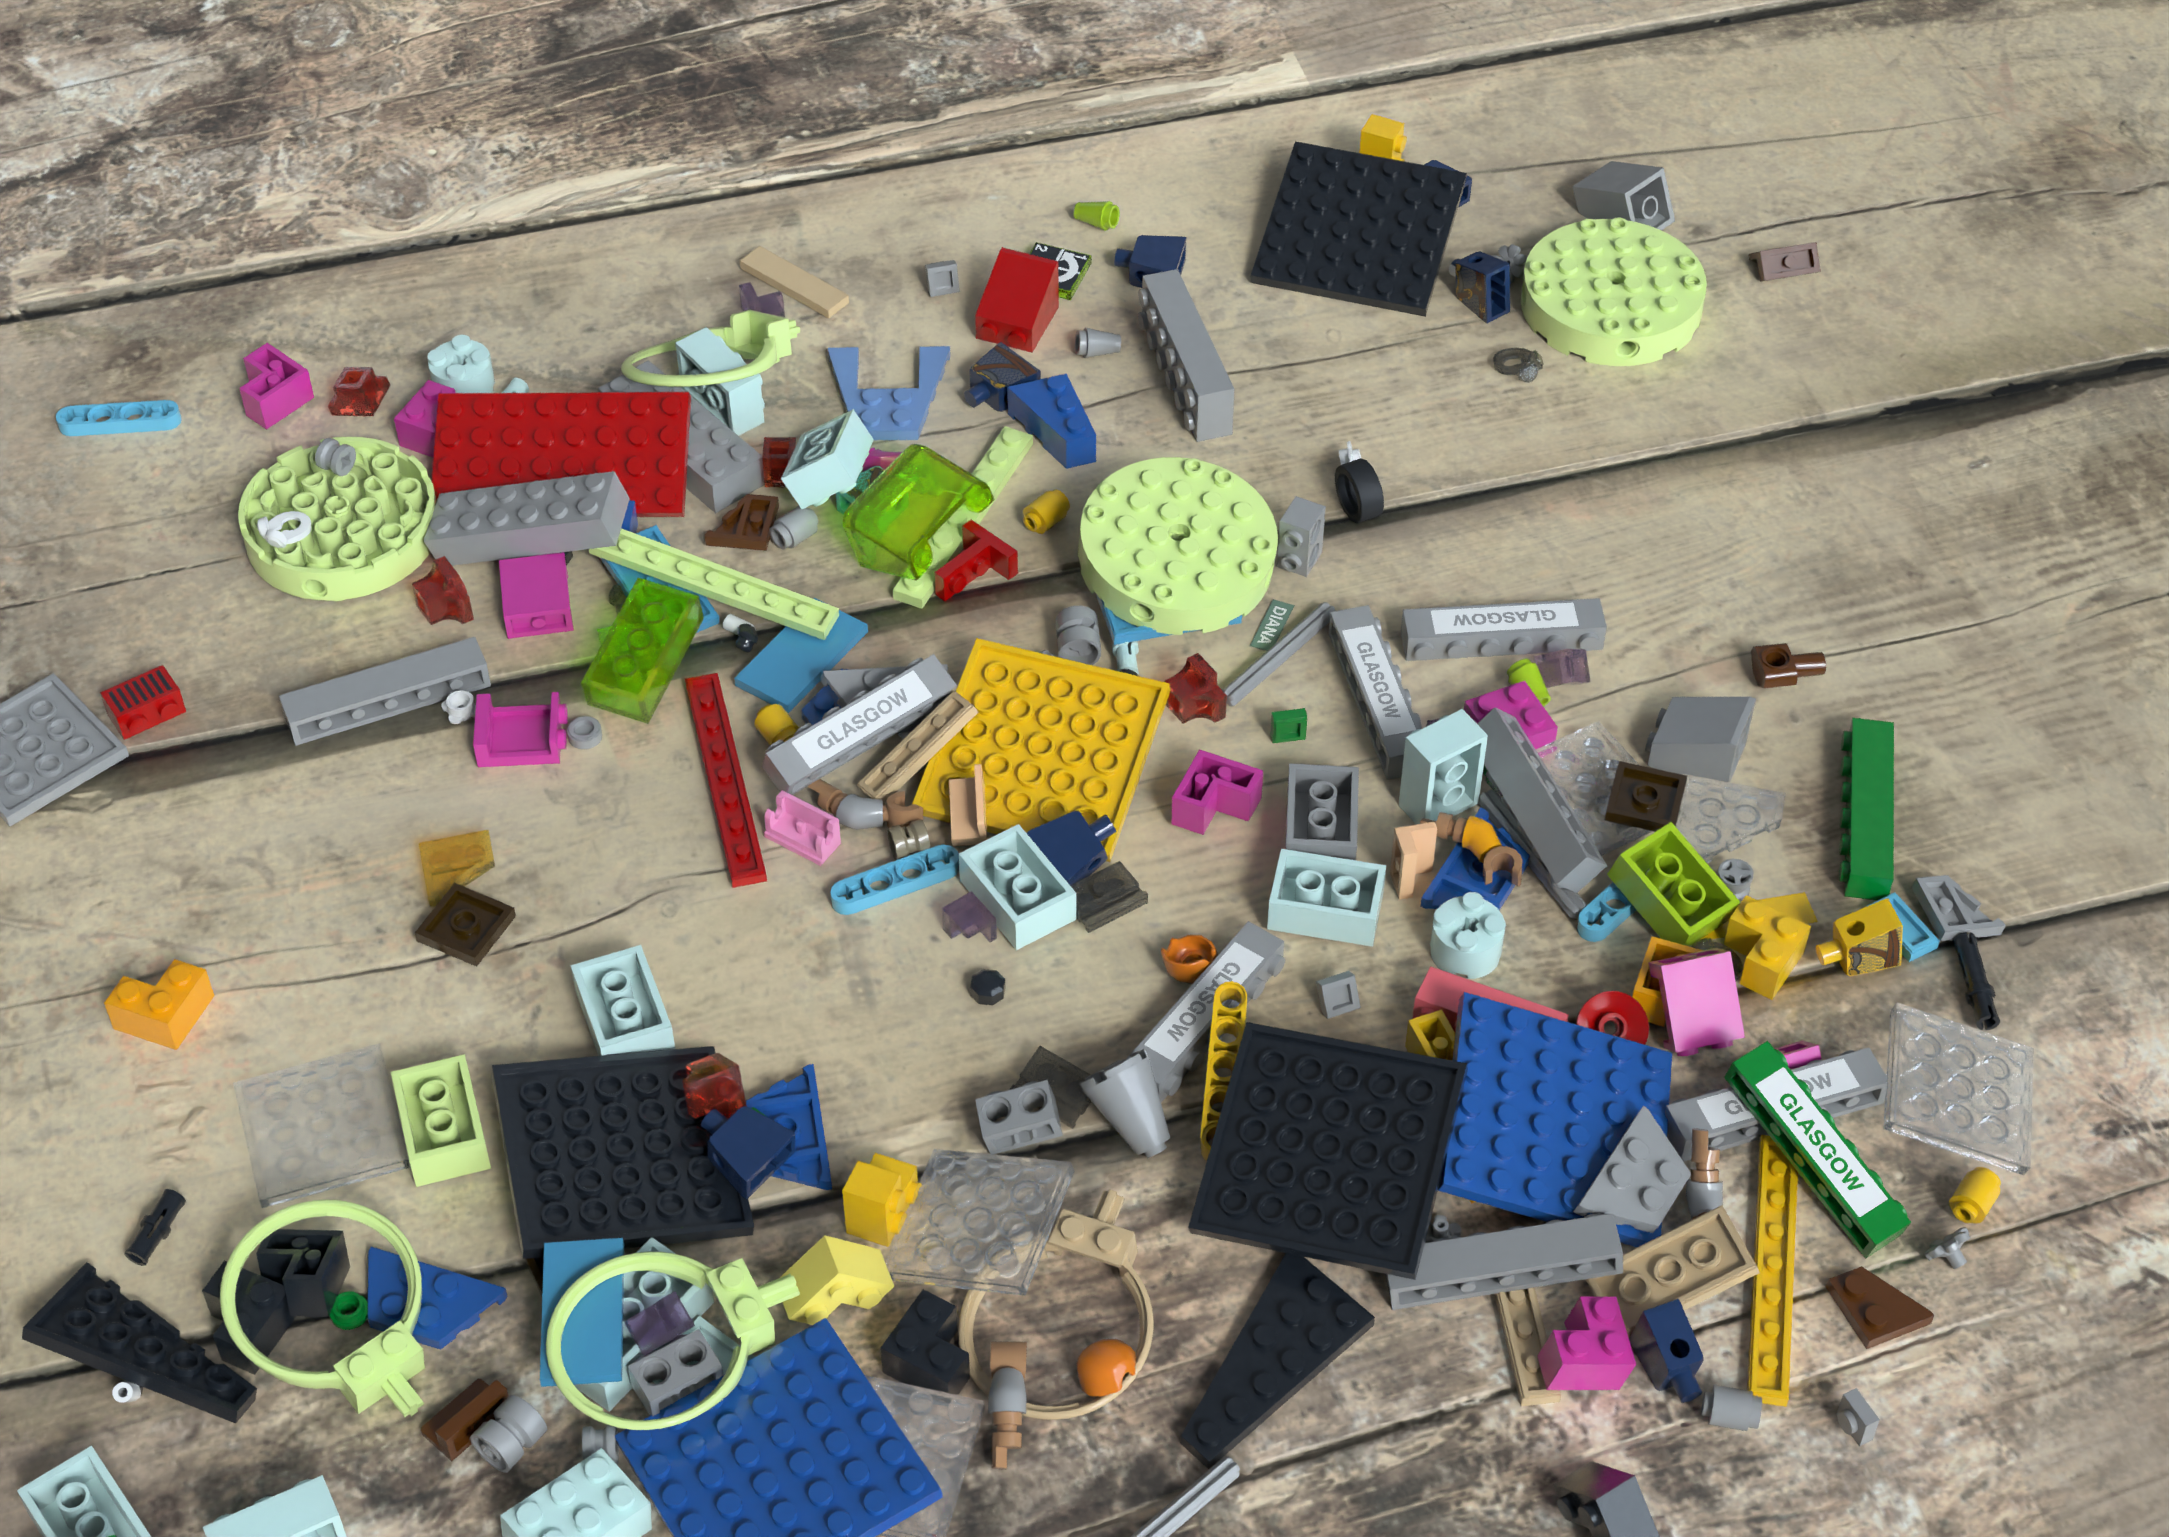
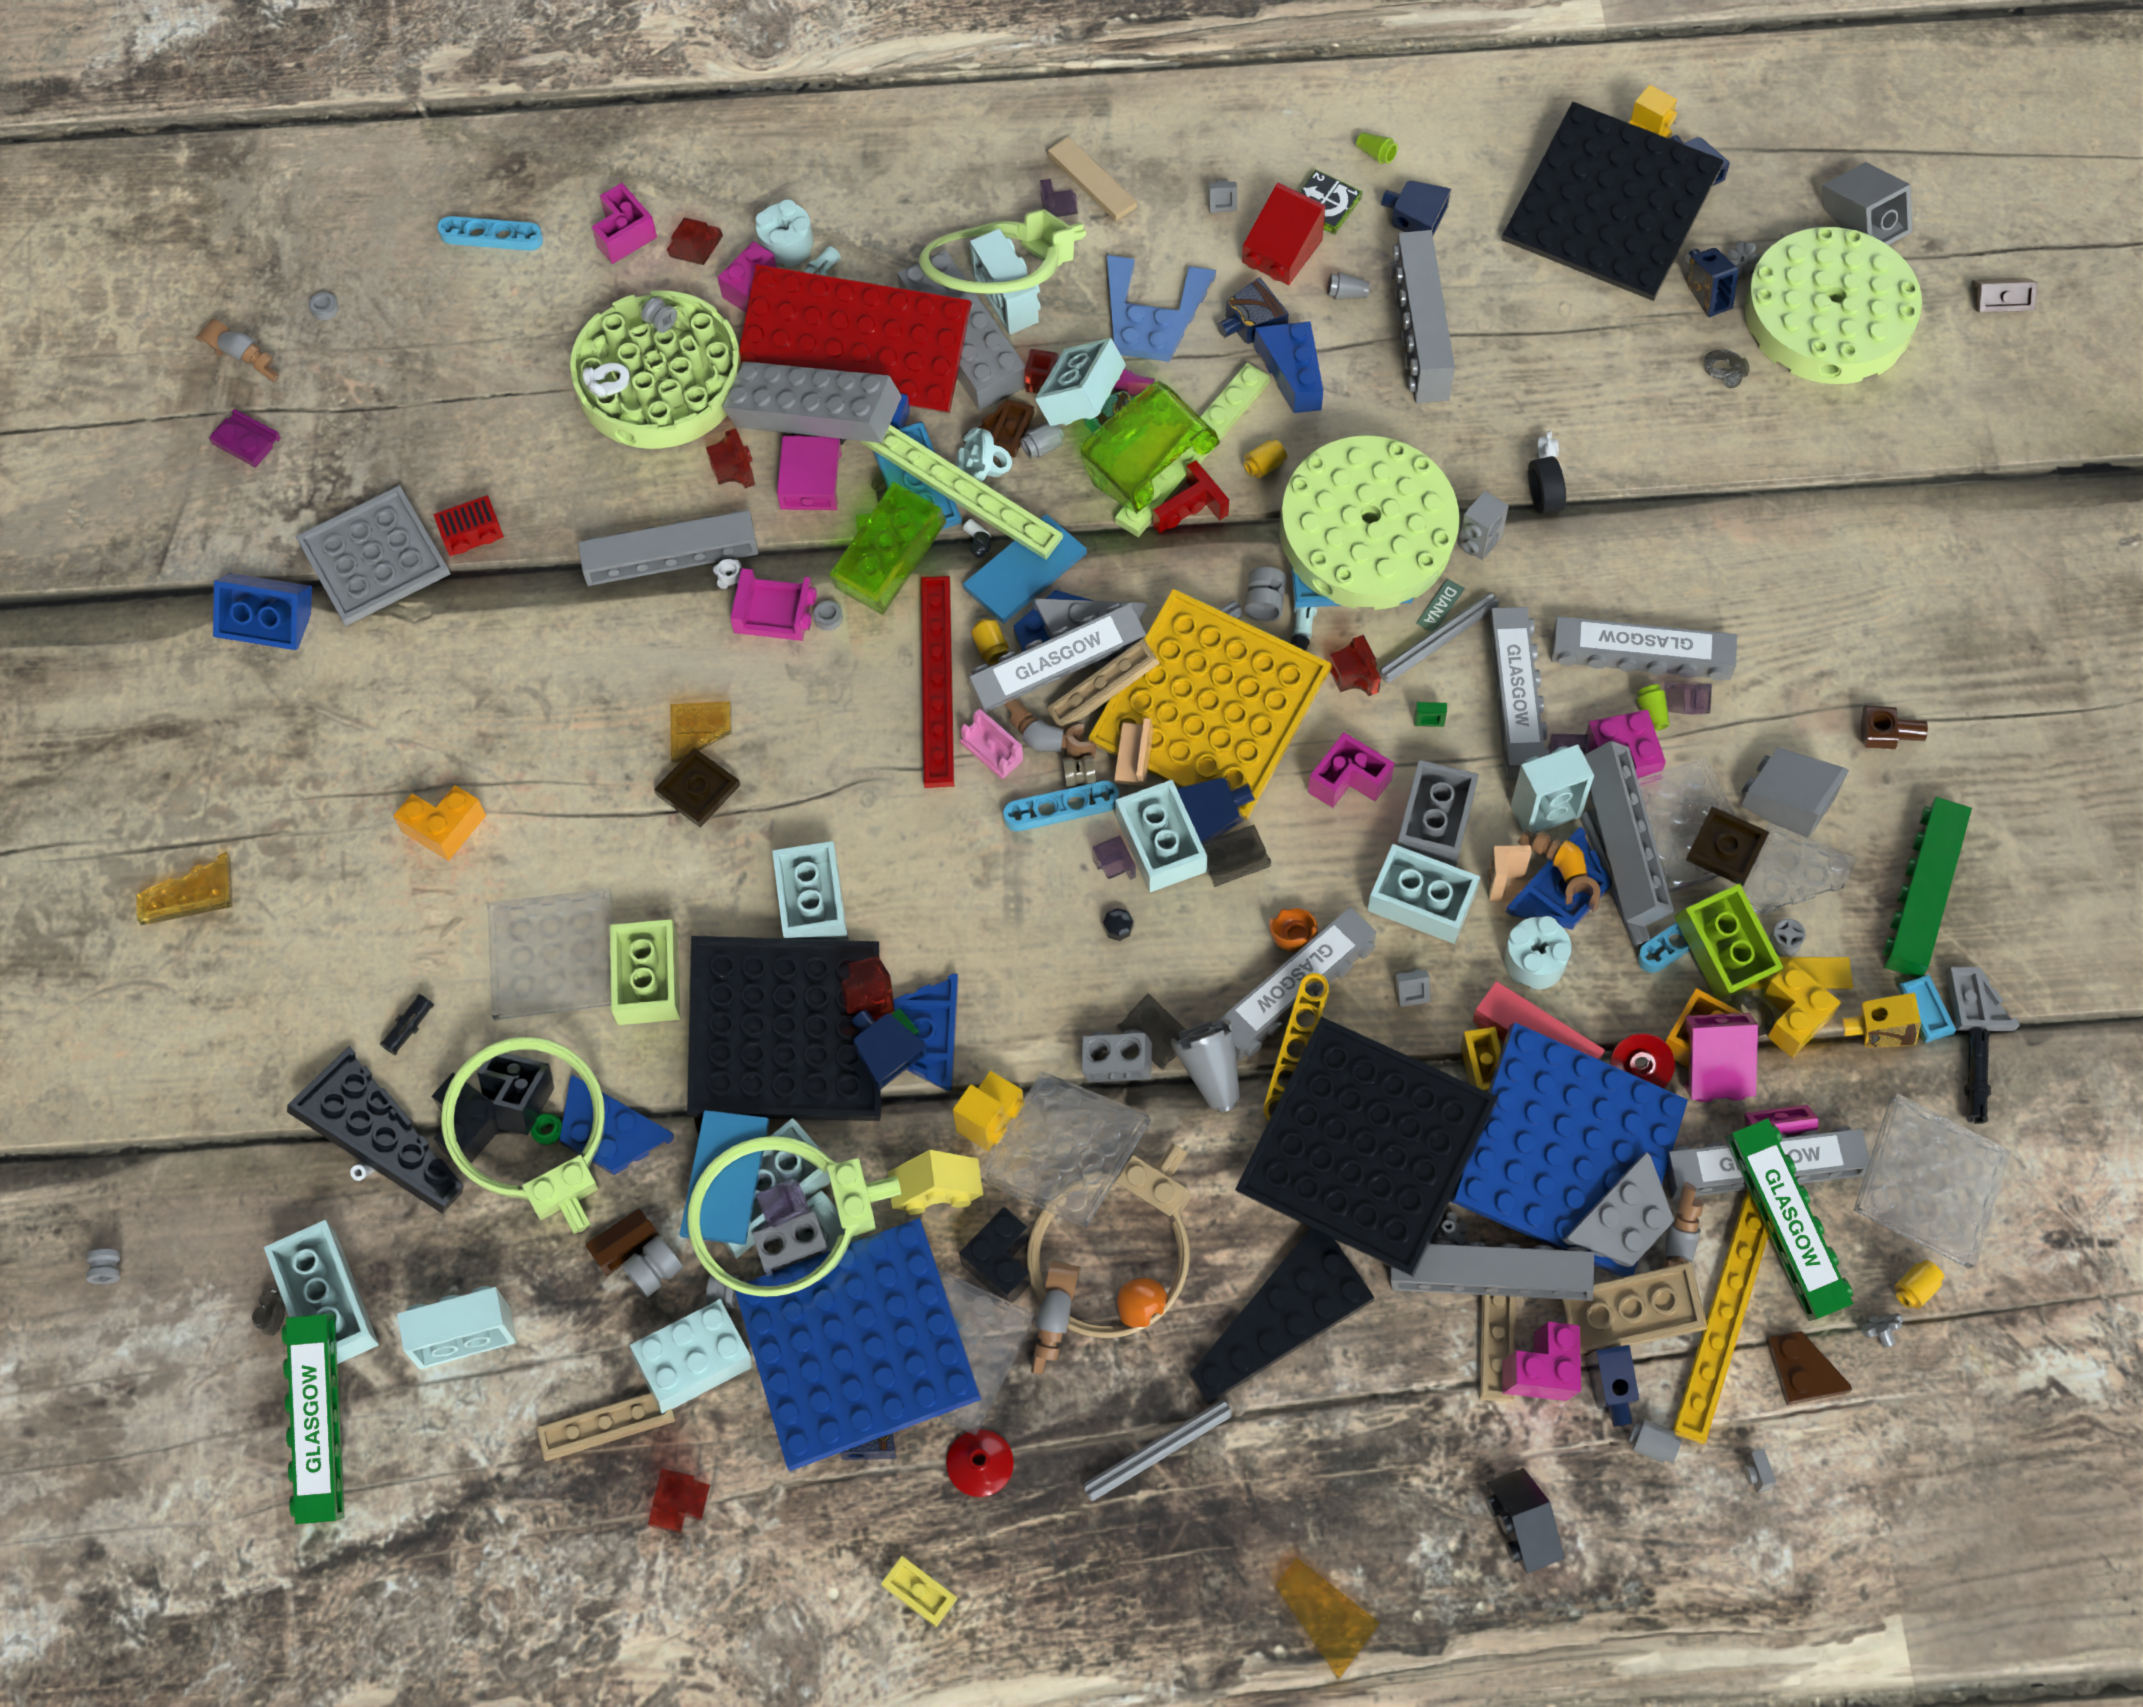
camera: 15 degrees right, 15 degrees up
(728, 546) = (978, 454): none -> light aqua tile

